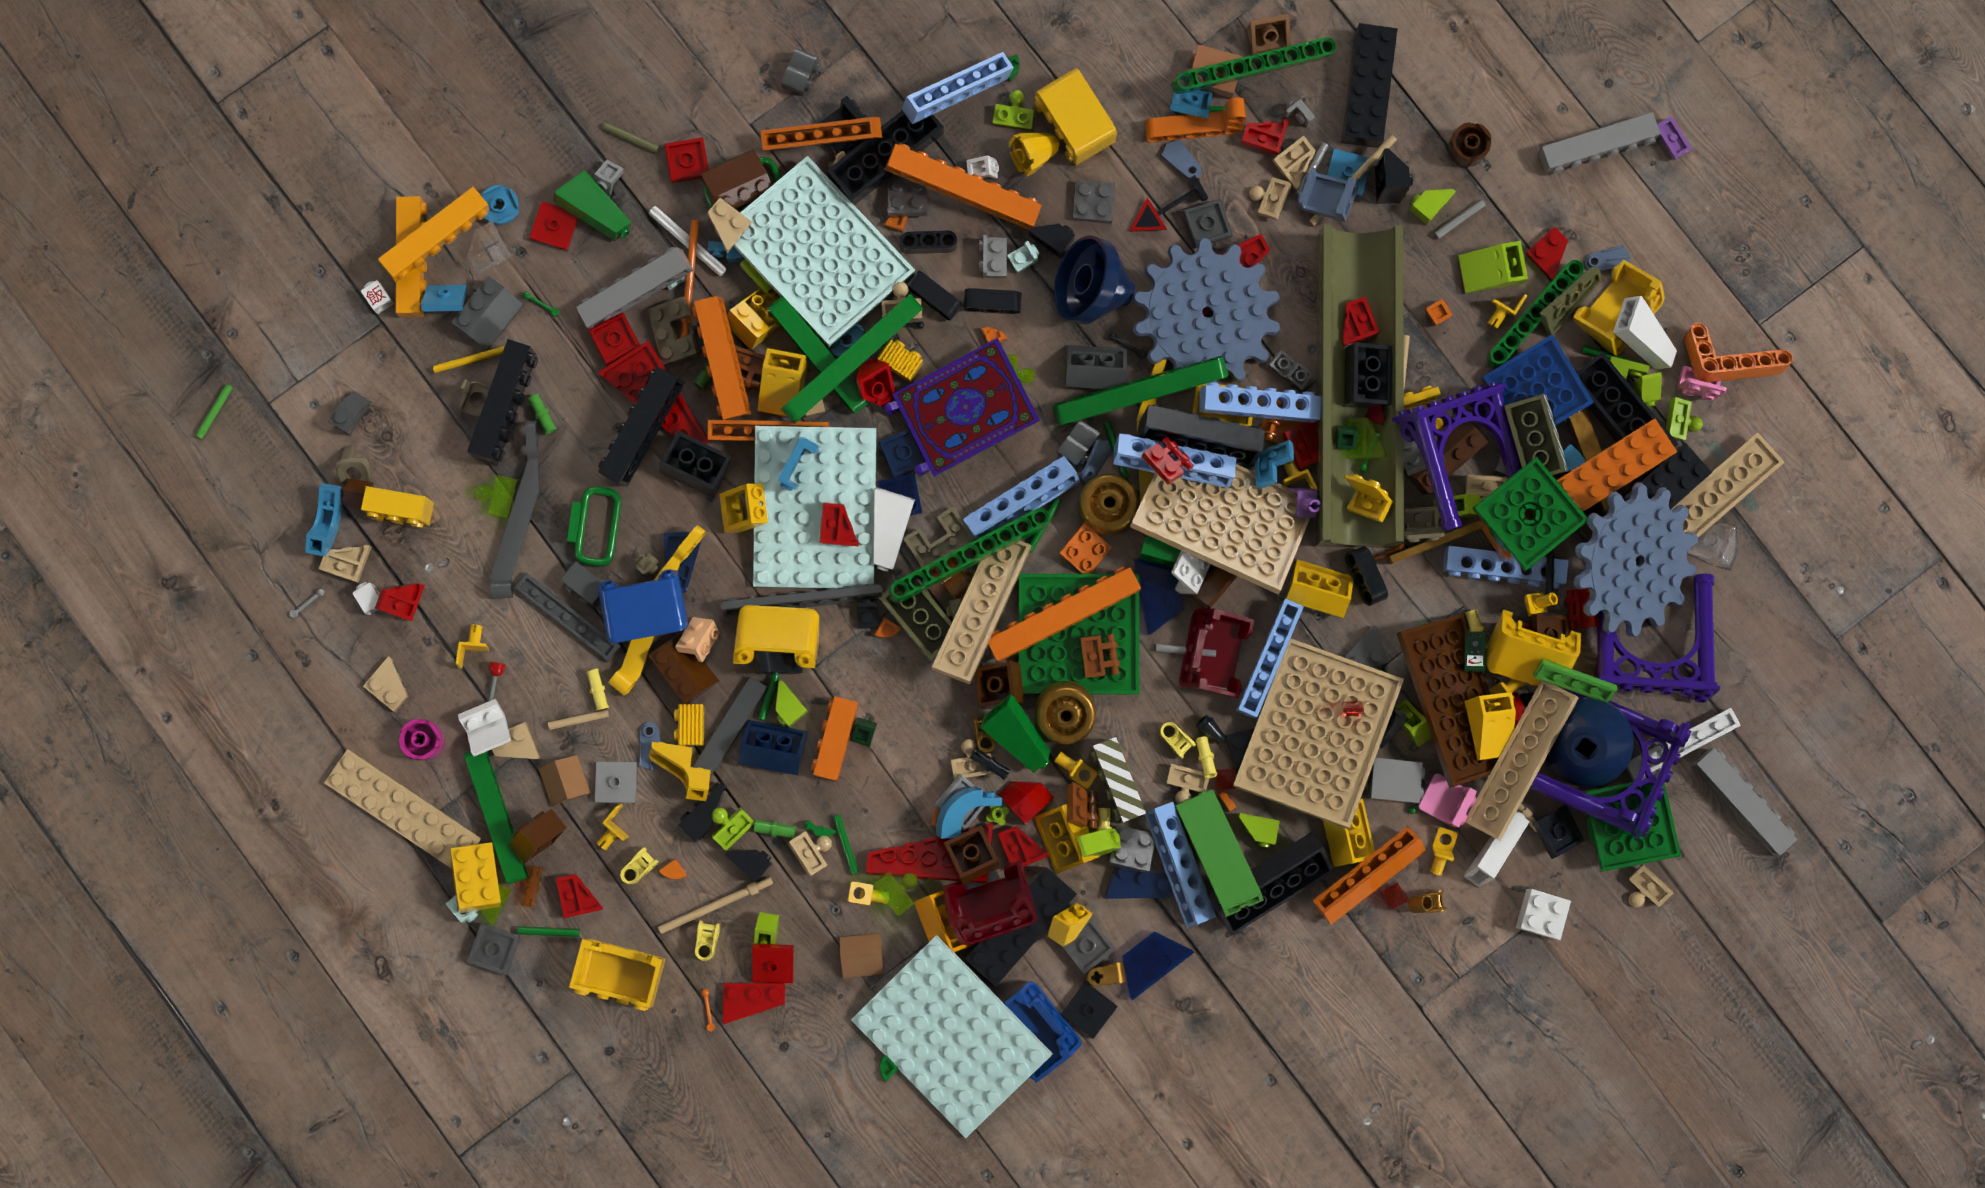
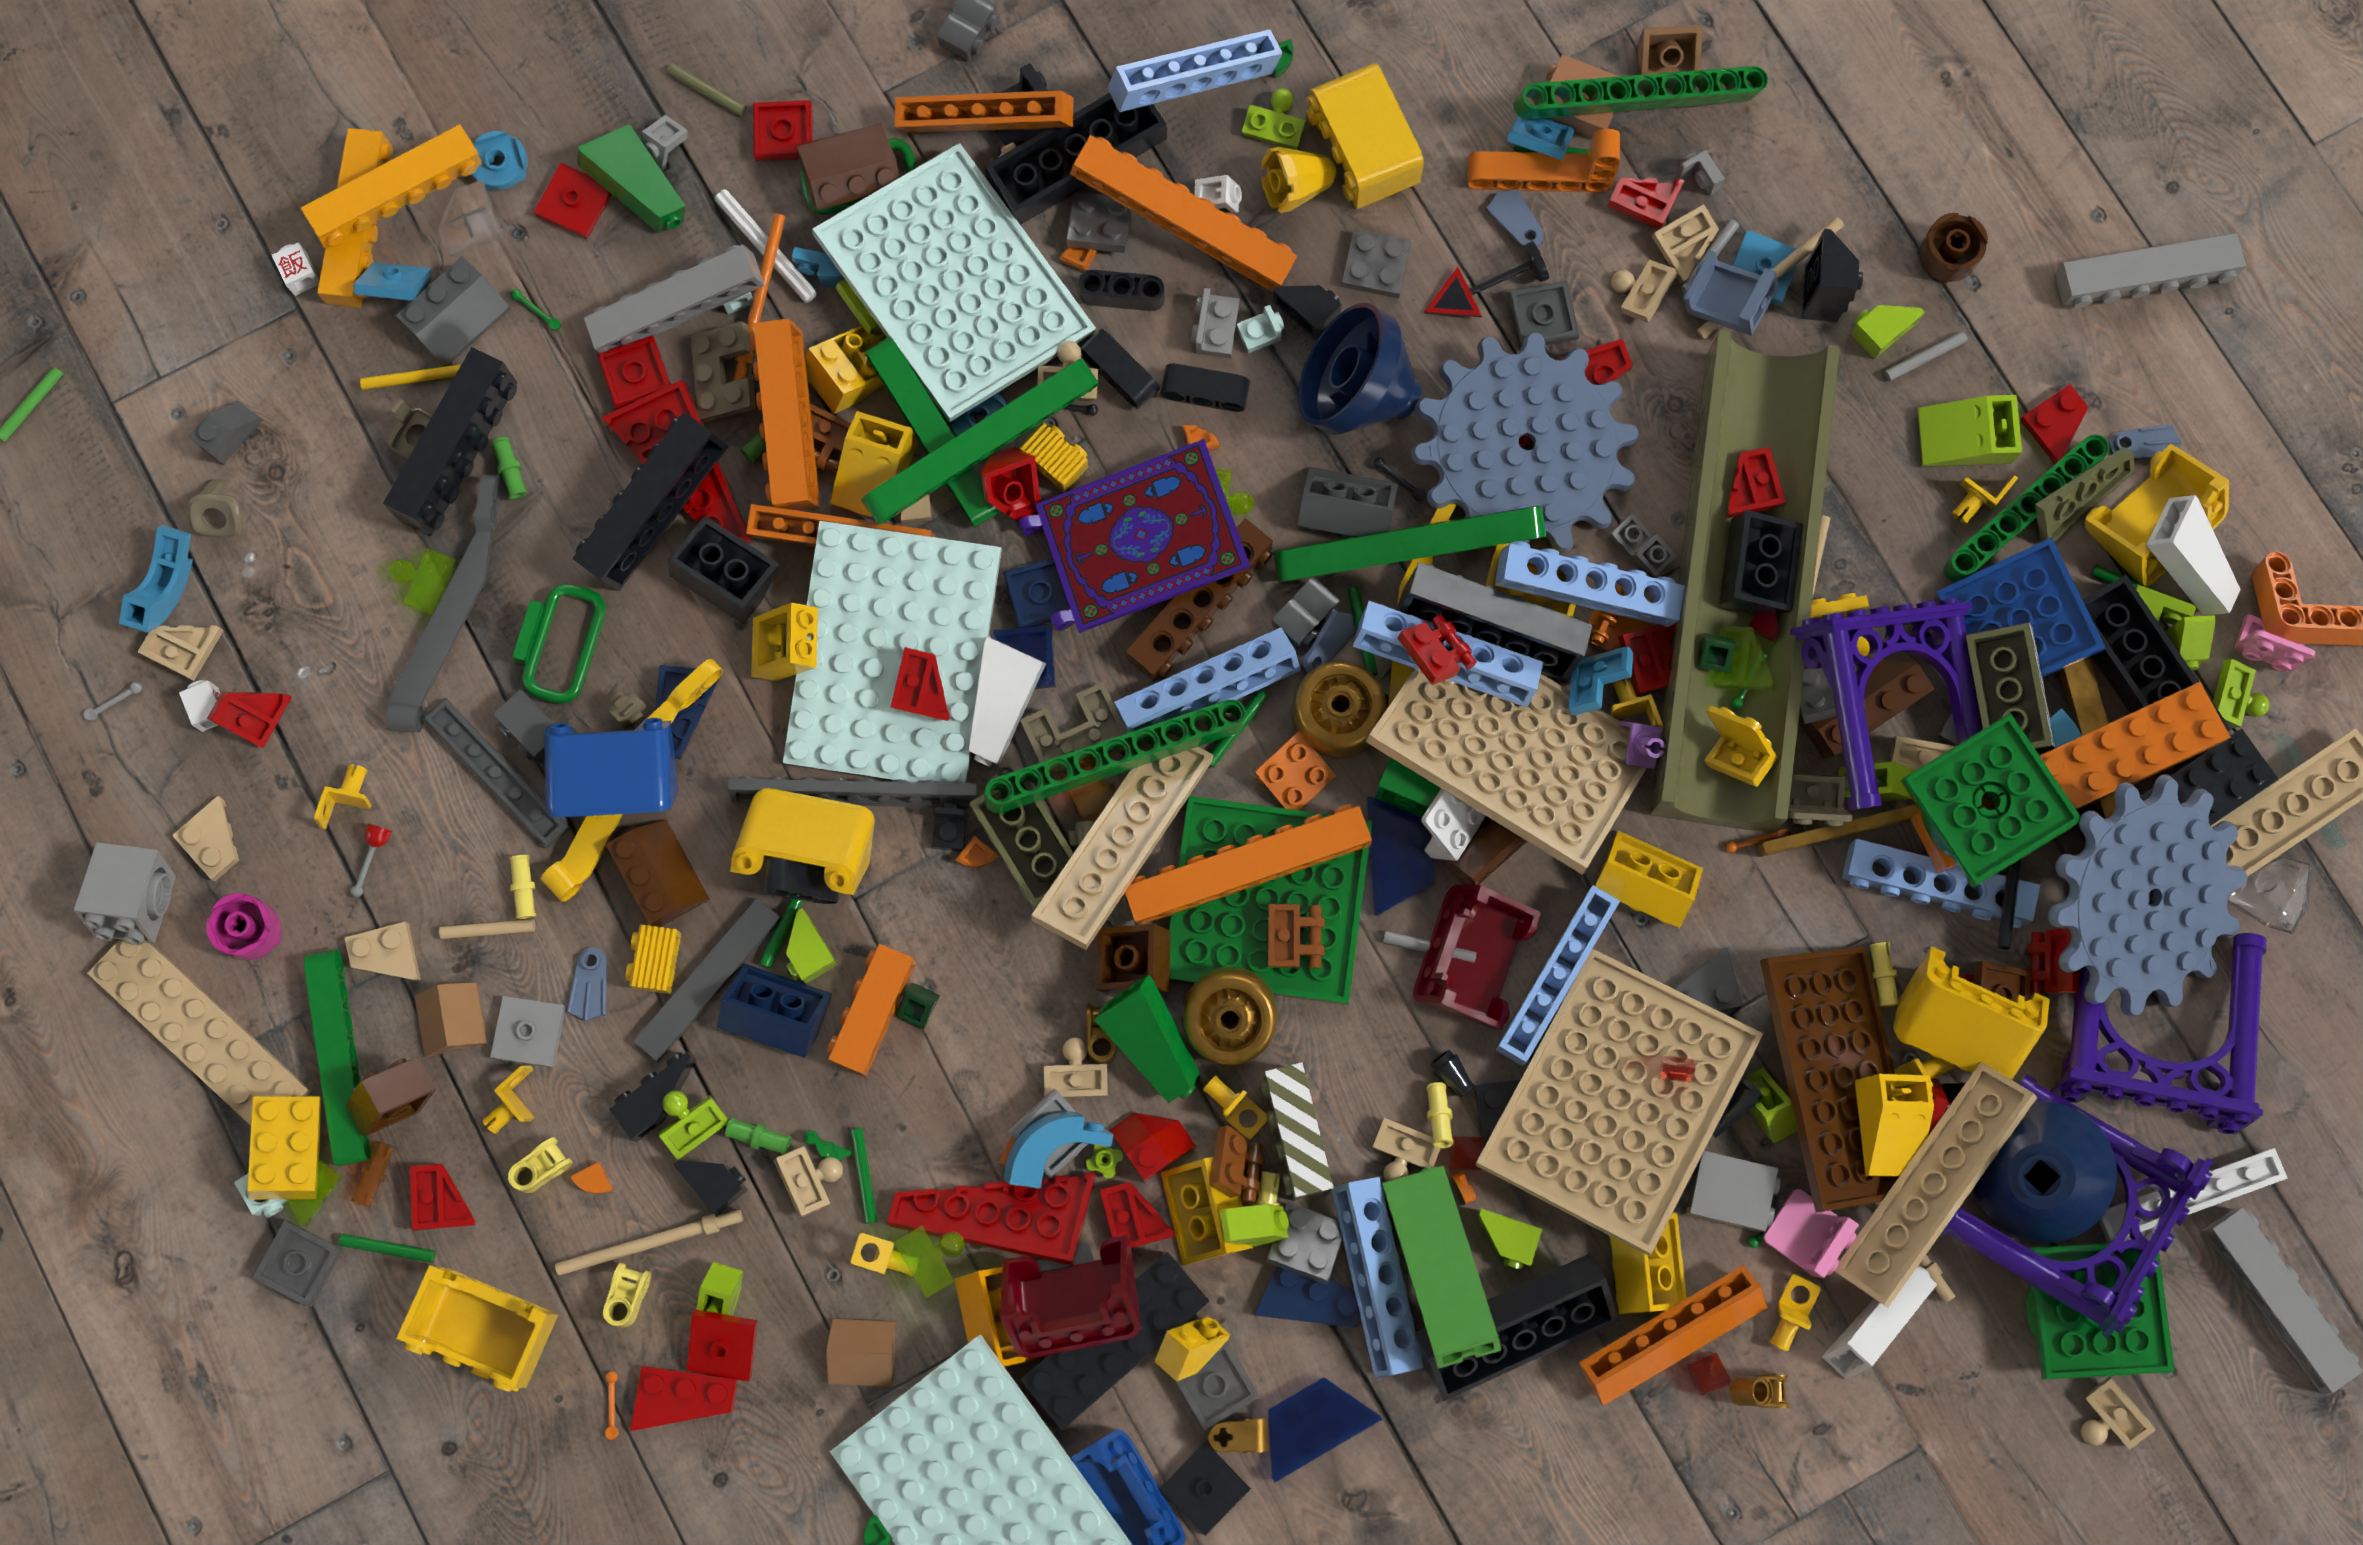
camera: 15 degrees right, 5 degrees down
(342, 729) = (125, 893): none -> light grey brick
(354, 492) = (216, 549): reddish brown brick -> none
(397, 507) = (269, 574): yellow brick -> none
(485, 727) = (343, 919): white bracket -> none
(677, 761) = (624, 1012): yellow arch -> none
(698, 638) = (687, 829): light nougat bracket -> none
(728, 223) = (825, 220): tan wing -> none
(793, 460) = (867, 577): dark azure panel -> none
(971, 855) = (1053, 1216): reddish brown brick -> none
(987, 489) = (1162, 628): none -> reddish brown brick
(990, 764) = (1103, 1079): black pin -> none
(1176, 740) = (1397, 1082): light yellow piece -> none
(1366, 576) = (1722, 869): black beam -> none
(1369, 85) = (1811, 145): black brick -> none
(1438, 312) = (1878, 488): orange plate -> none
(1475, 651) = (1879, 1007): tile -> none
(1538, 602) = (1985, 944): yellow bracket -> none
(1543, 914) = (1943, 1435): white brick -> none
(1558, 831) = (1981, 1307): black plate -> none
(1575, 681) = (2033, 1071): bright green tile -> none
(1673, 138) = (2264, 277): medium lavender plate -> none

